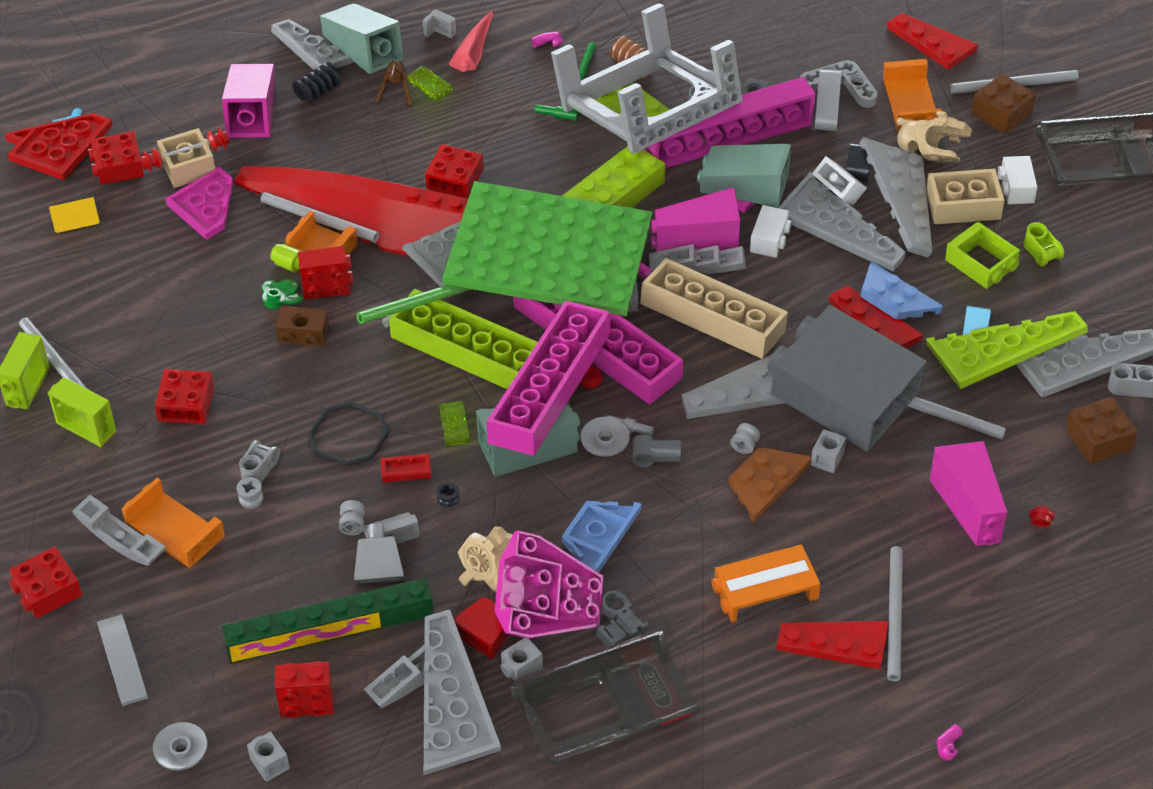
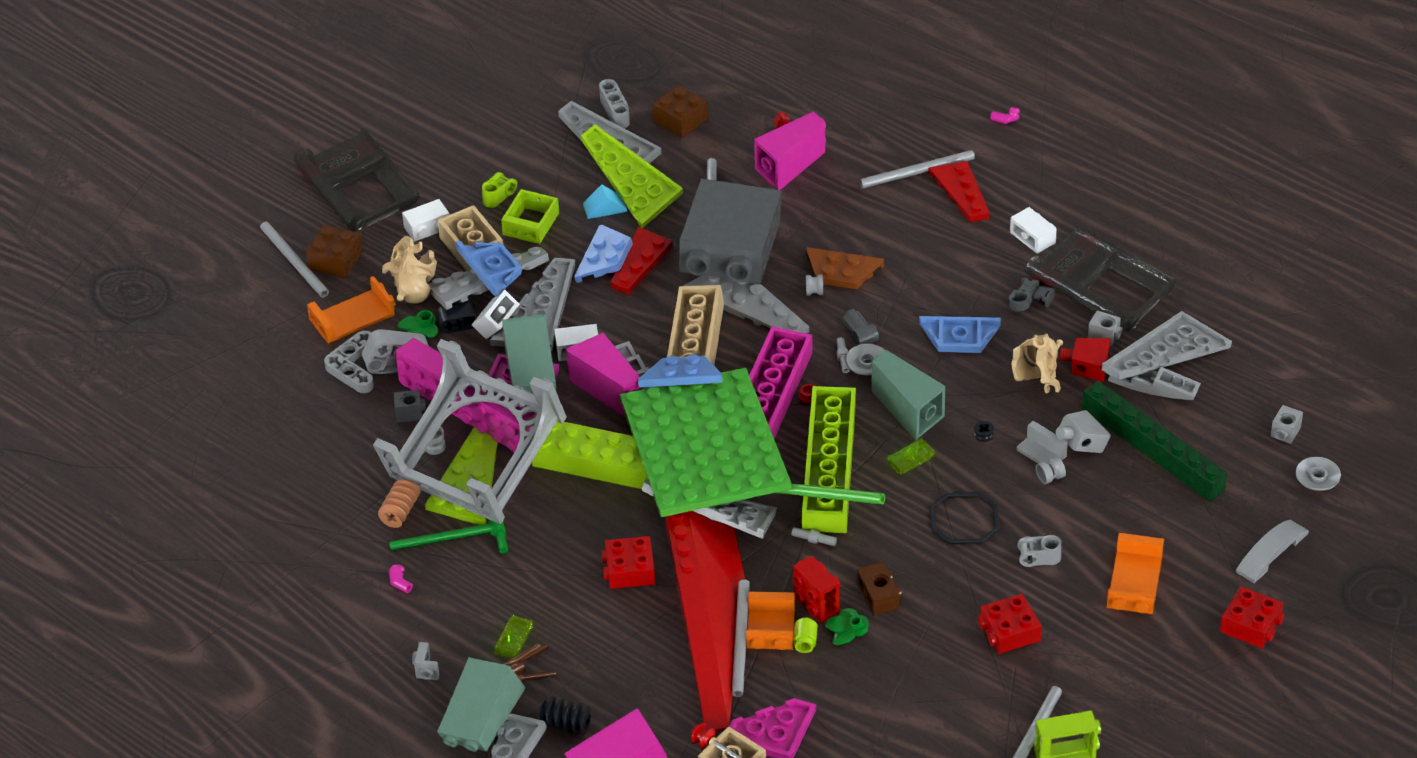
camera: 115 degrees left, 5 degrees down
(82, 411) = (1079, 675): lime window -> none
(116, 533) = (1170, 598): light grey slope -> none
(254, 496) = (1071, 543): light grey wheel -> none
(304, 689) = (1225, 418): red brick -> none
(405, 468) = (978, 462): red plate -> none
(470, 50) = (447, 628): coral piece -> none
(545, 589) = (1056, 323): dark pink wedge -> none
(548, 378) = (862, 366): dark pink brick -> none
(647, 257) = (680, 371): none -> medium blue wing
(721, 669) = (1033, 230): none -> white brick
(765, 579) = (944, 228): orange panel -> none
(828, 451) = (794, 238): light grey brick -> none
(855, 134) = (423, 324): none -> green plate
(899, 183) = (491, 264): none -> medium blue wing
(934, 42) = (261, 323): red wing -> none

